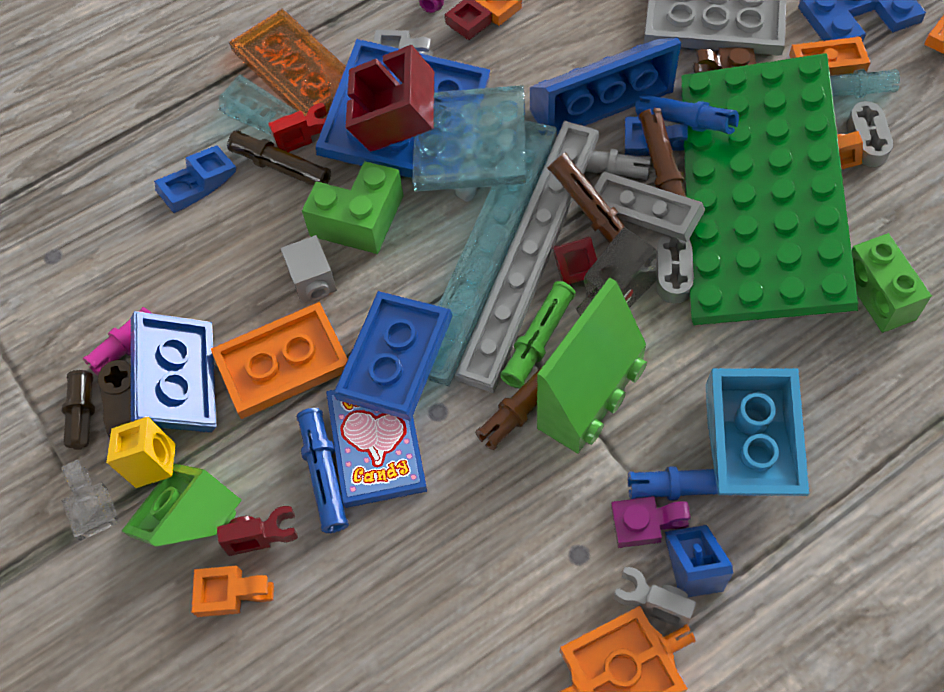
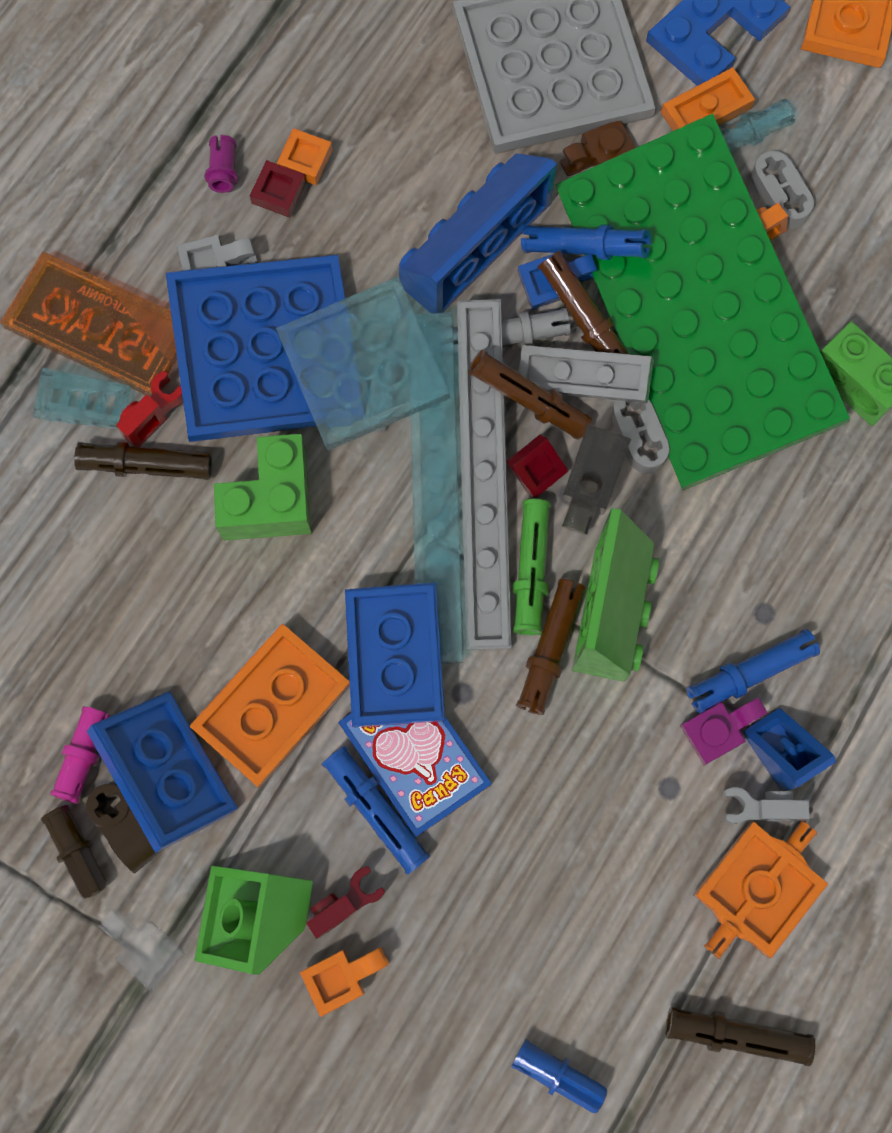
camera: 30 degrees left, 15 degrees up
(141, 452) = (179, 875): yellow brick -> none
(202, 175) = (57, 520): blue slope -> none
(309, 269) = (251, 588): light grey brick -> none
(383, 109) = (270, 358): dark red piece -> none
(757, 431) = (799, 599): dark azure slope -> none

